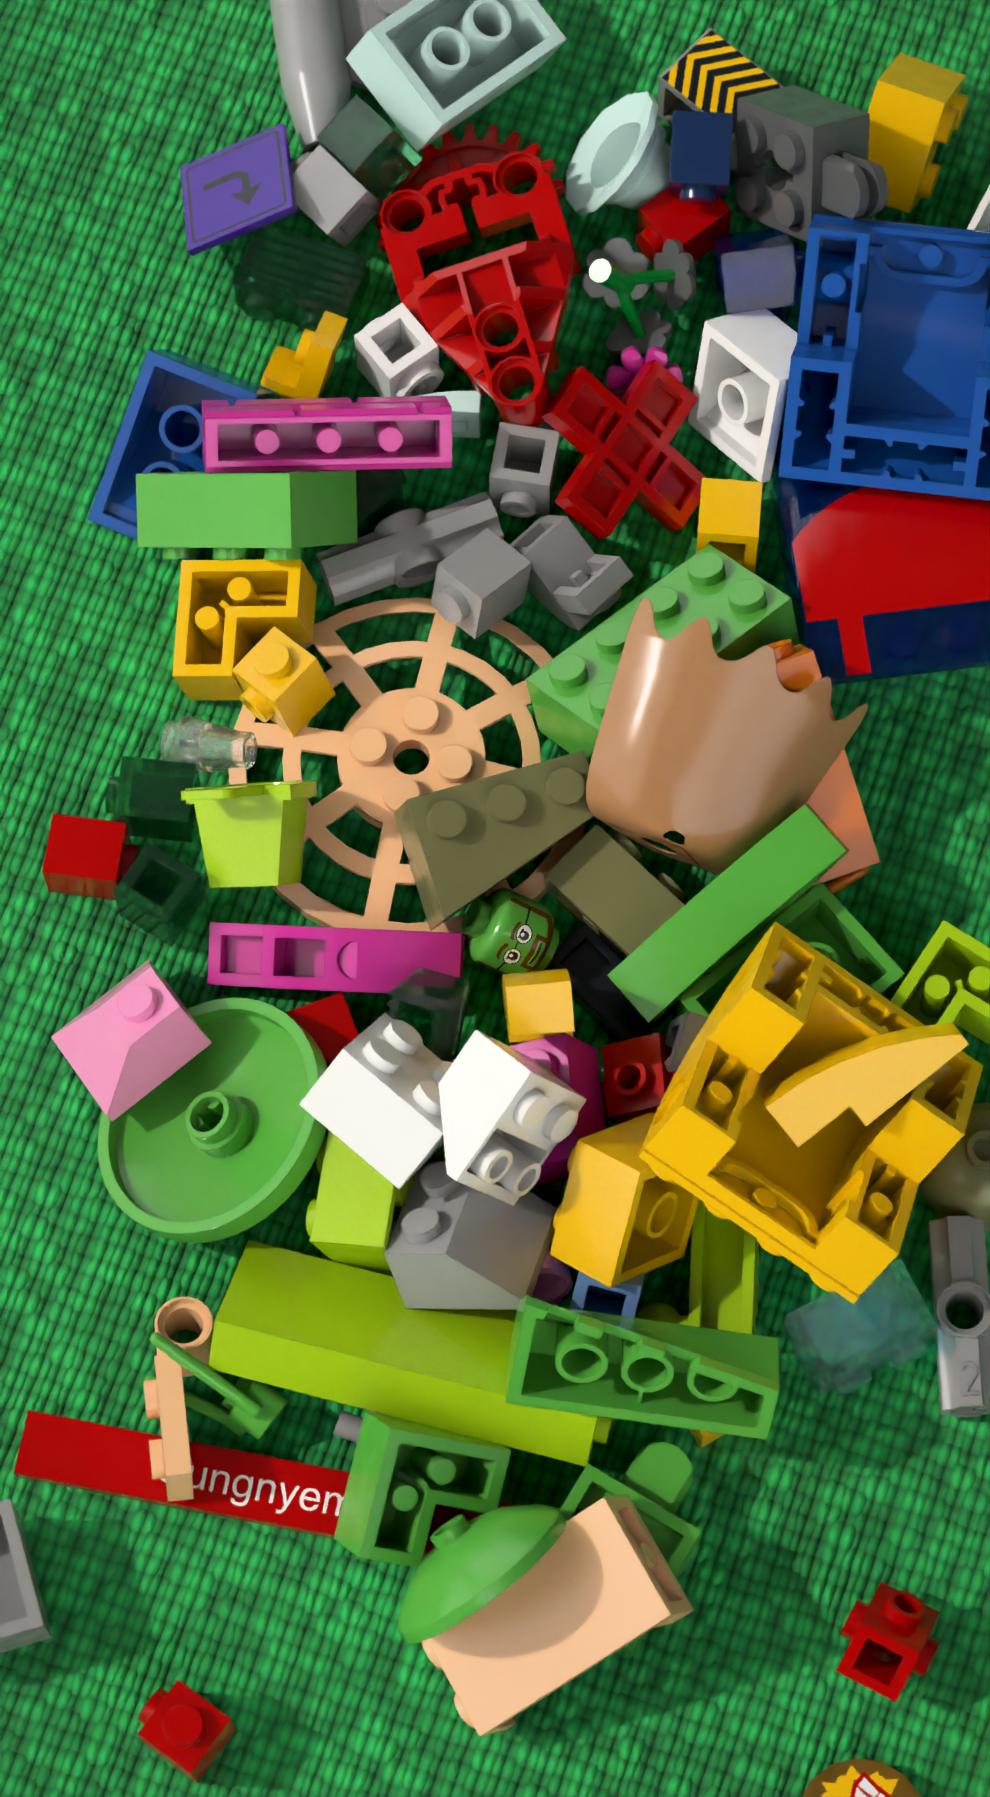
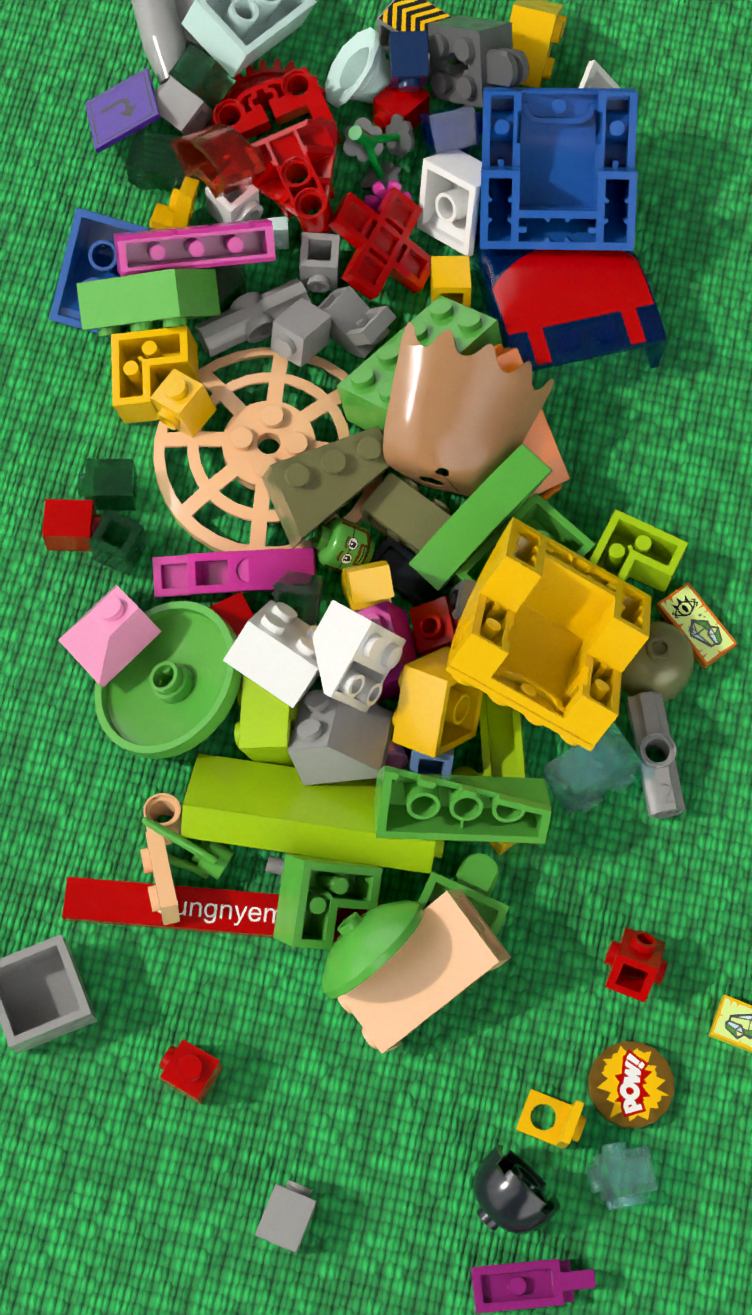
camera: 10 degrees left, 0 degrees up
(207, 745) = (140, 447): clear cone -> none
(252, 831) = (173, 496): lime container -> none
(381, 291) = (219, 158): none -> clear red brick
(860, 1076) = (579, 607): yellow slope -> none

